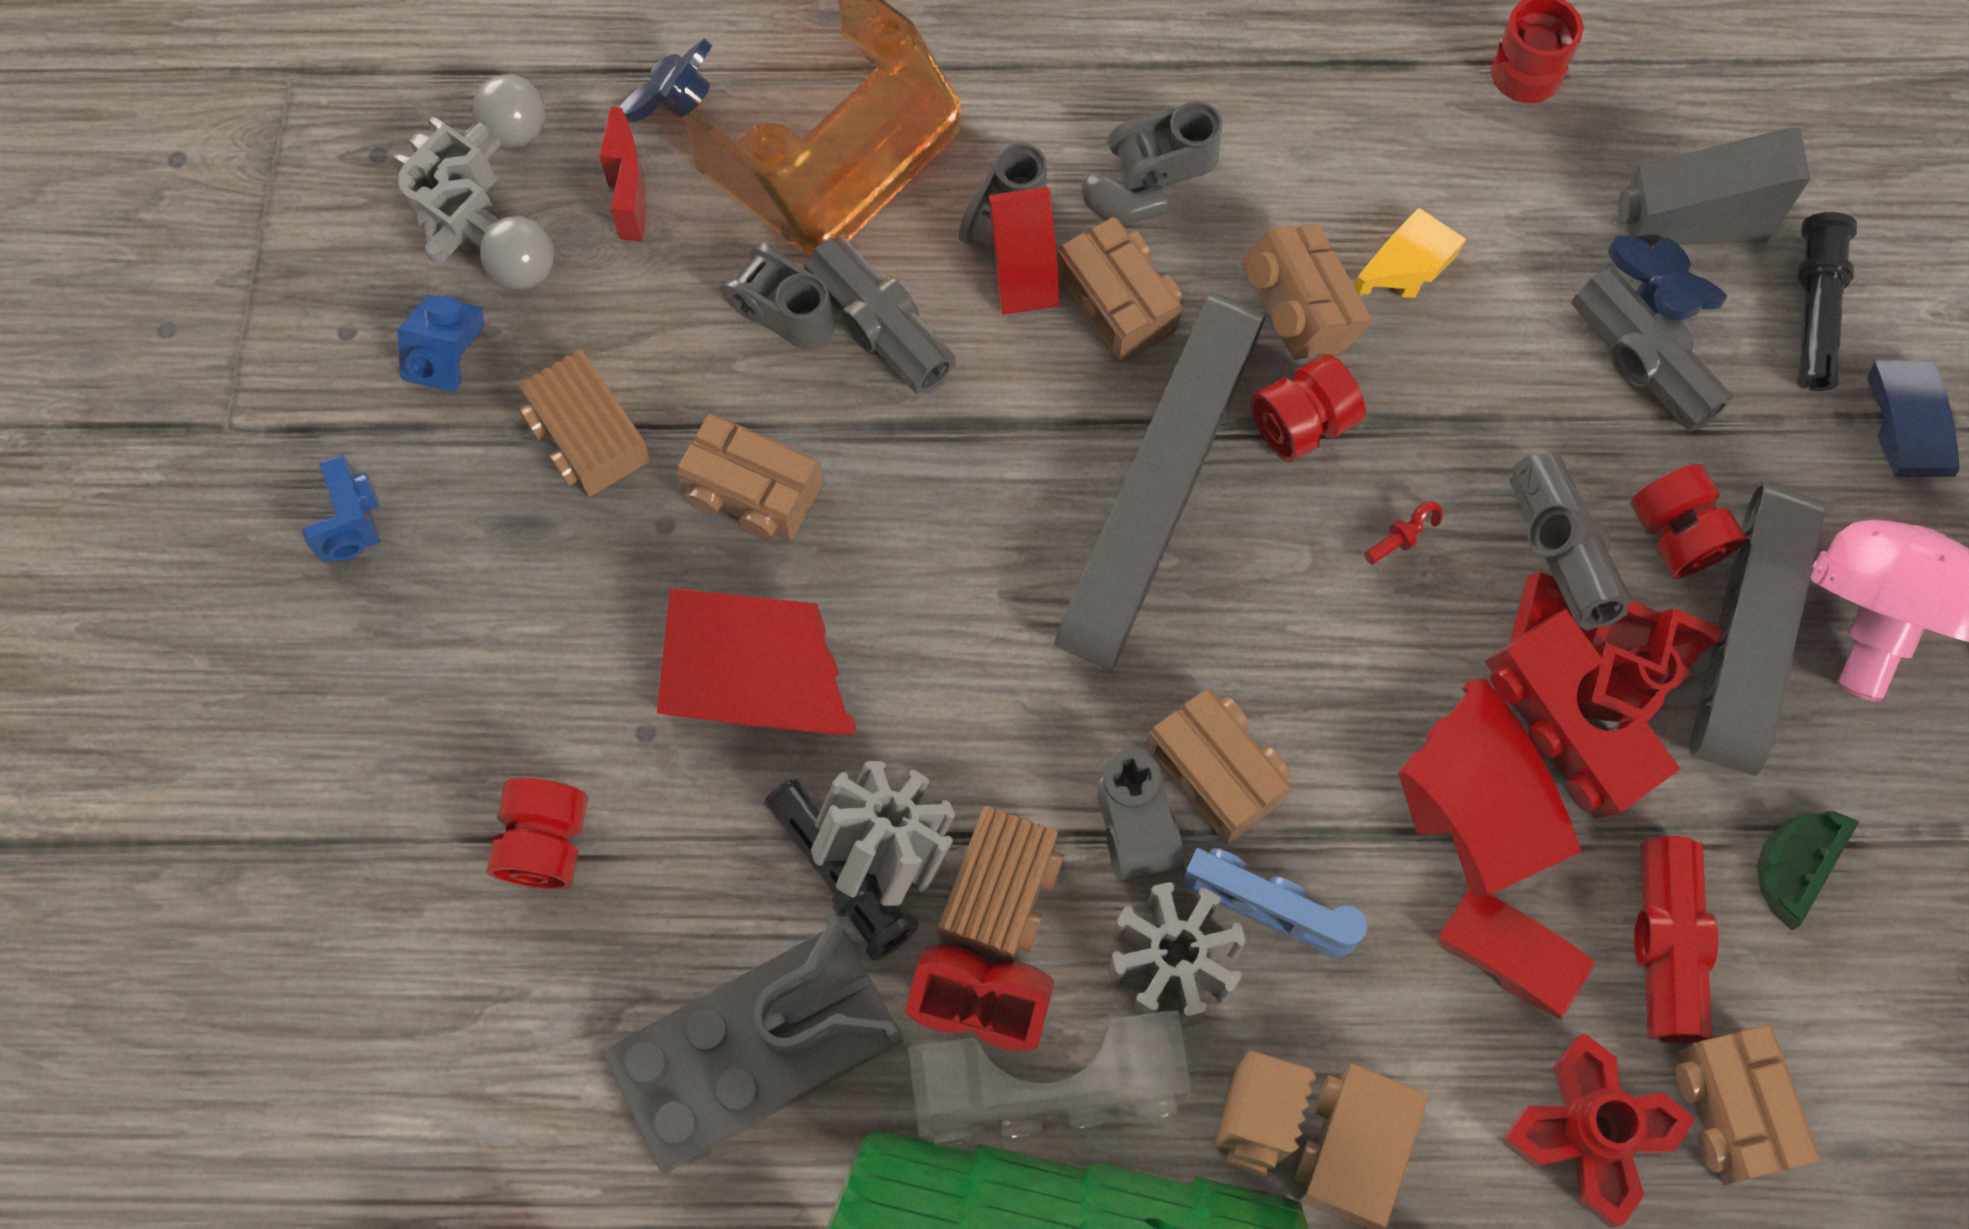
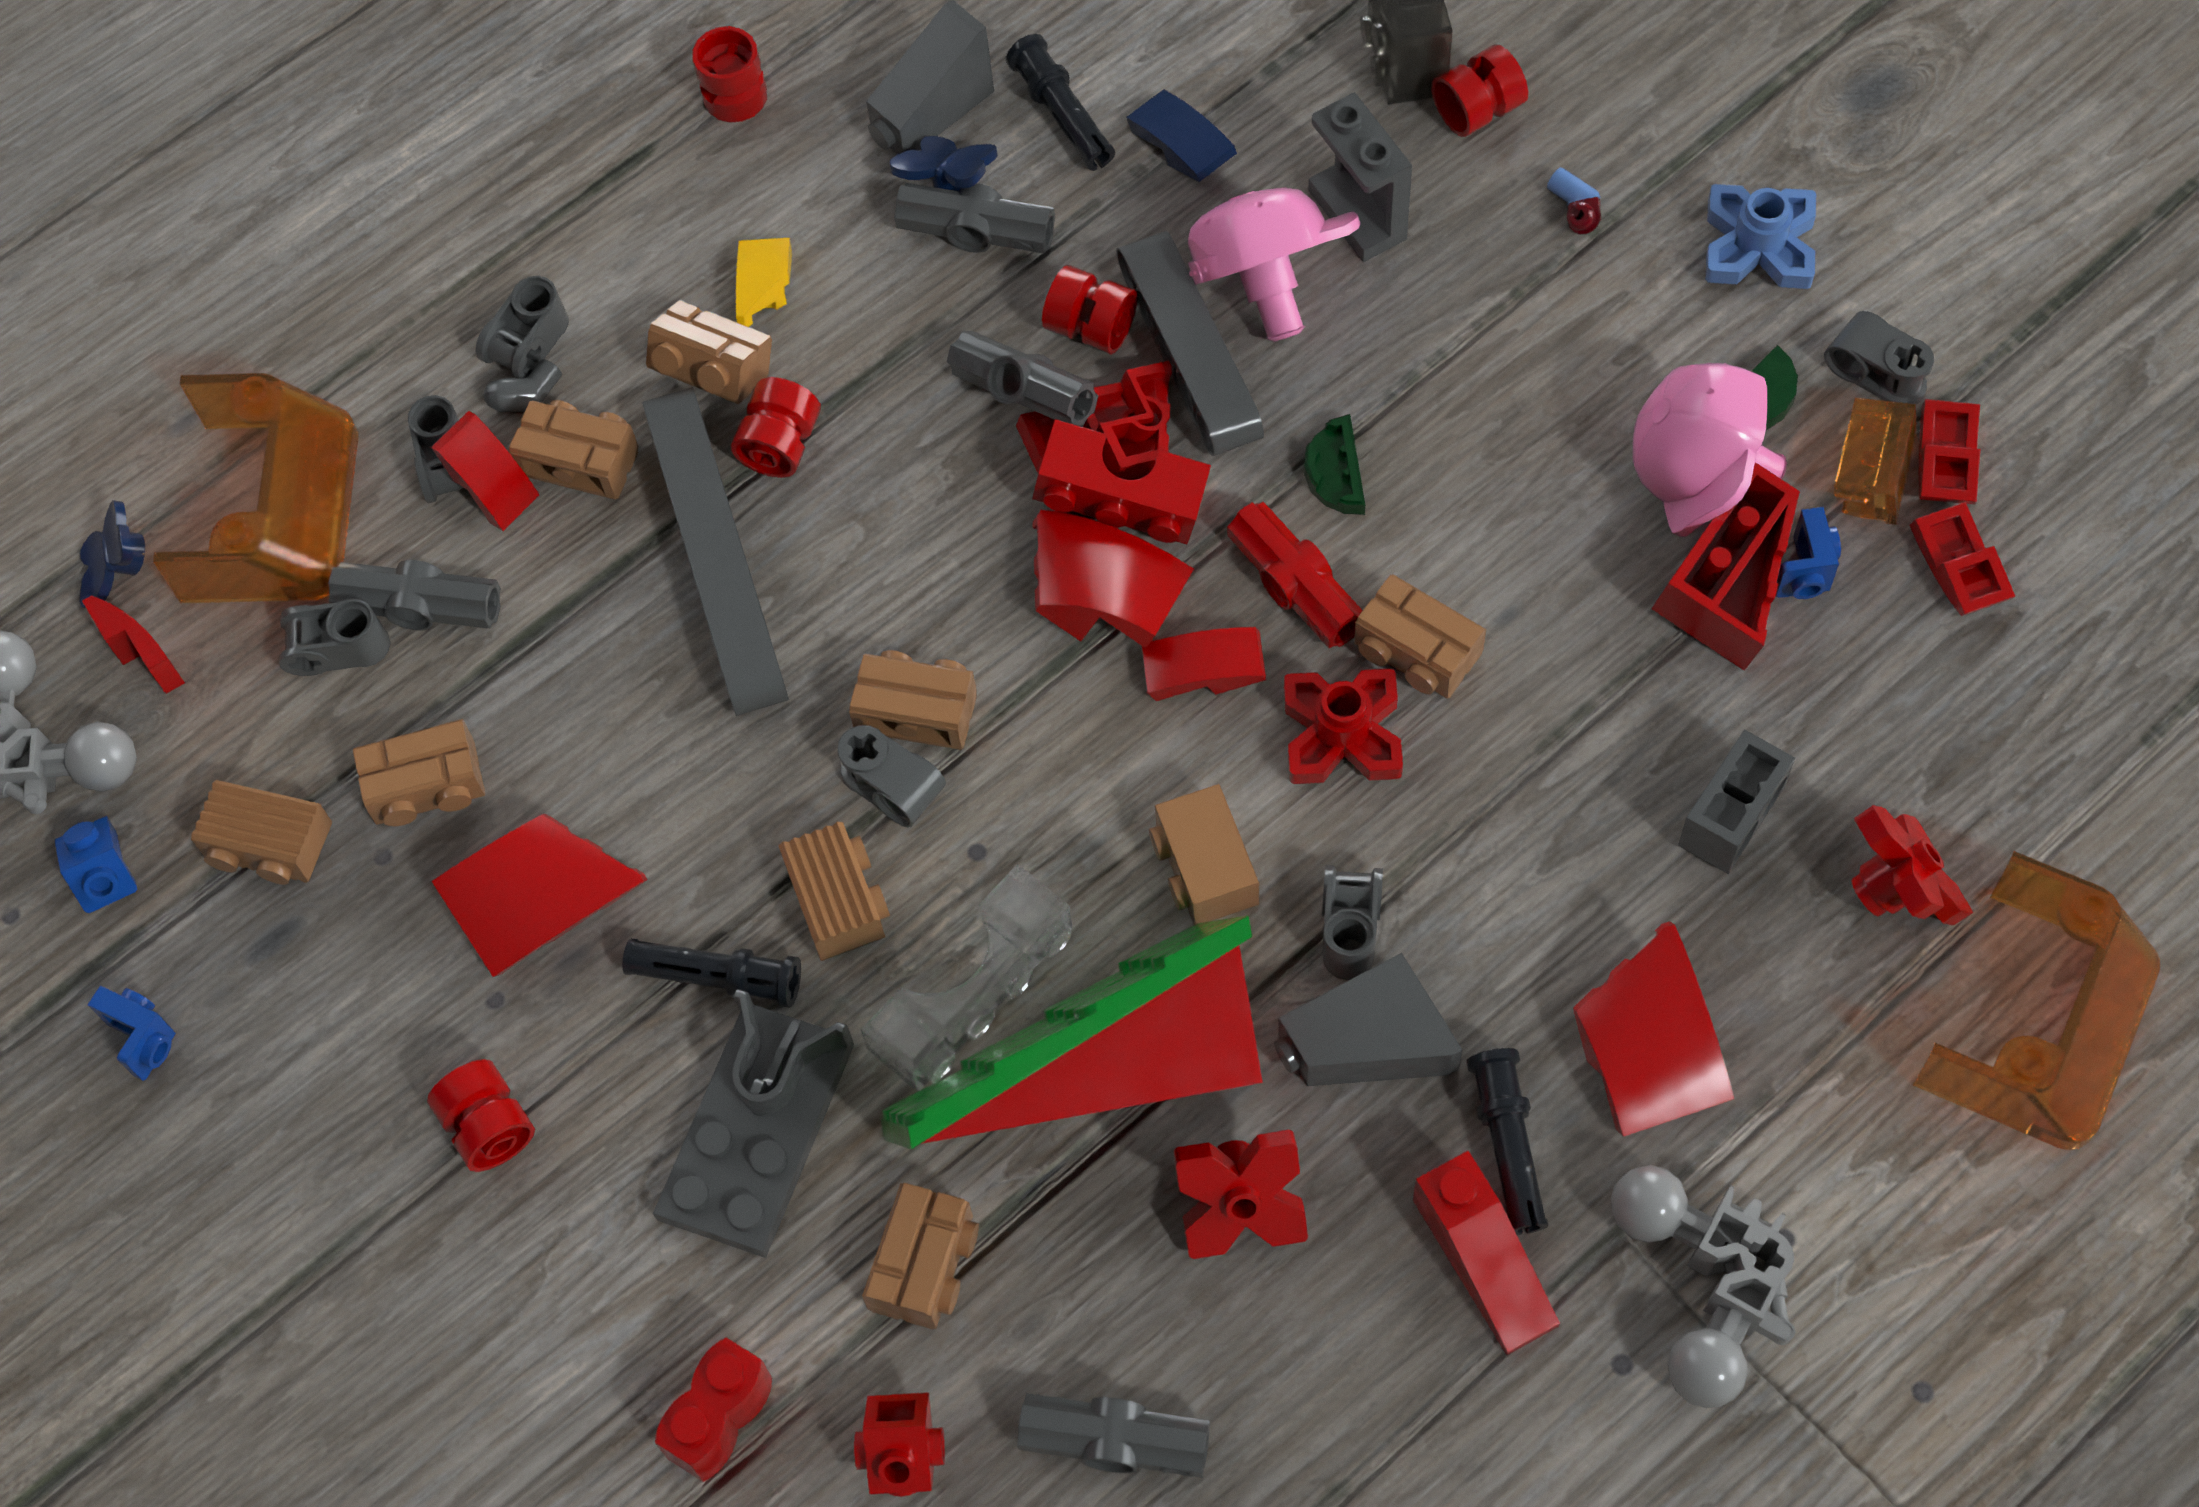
camera: 35 degrees left, 5 degrees down
(882, 833) = (724, 916): light grey gear -> none
(964, 992) = (867, 970): red brick -> none
(1169, 932) = (961, 832): light grey gear -> none
(1263, 1112) = (1124, 878): medium nougat brick -> none
(1275, 903) = (1024, 756): medium blue plate -> none
(1404, 534) = (911, 461): red hand -> none

